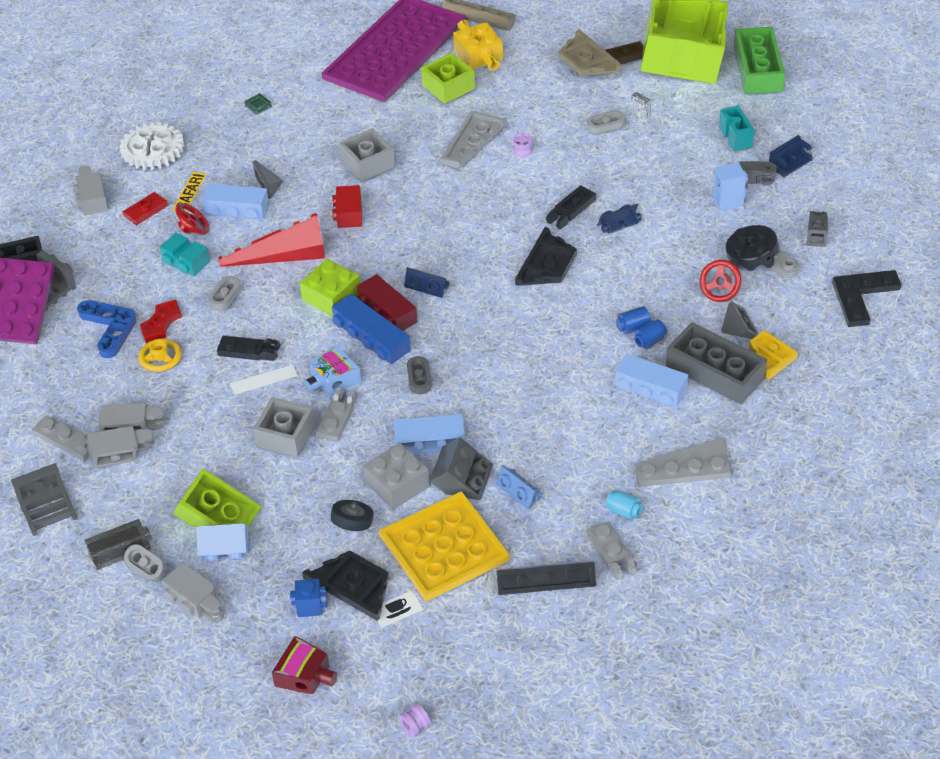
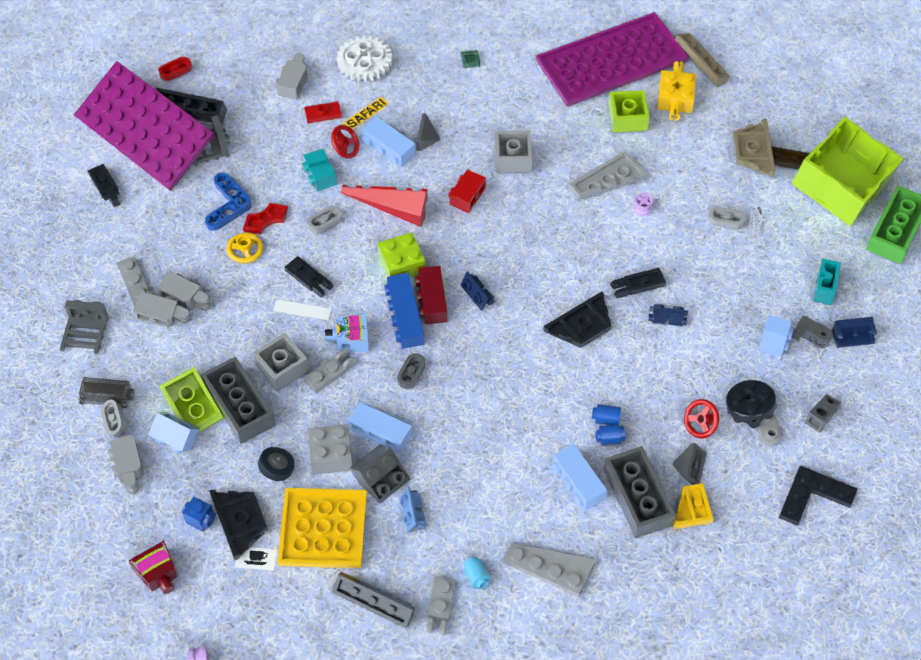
camera: 30 degrees right, 10 degrees up
(270, 479) = (238, 400): none -> dark grey brick

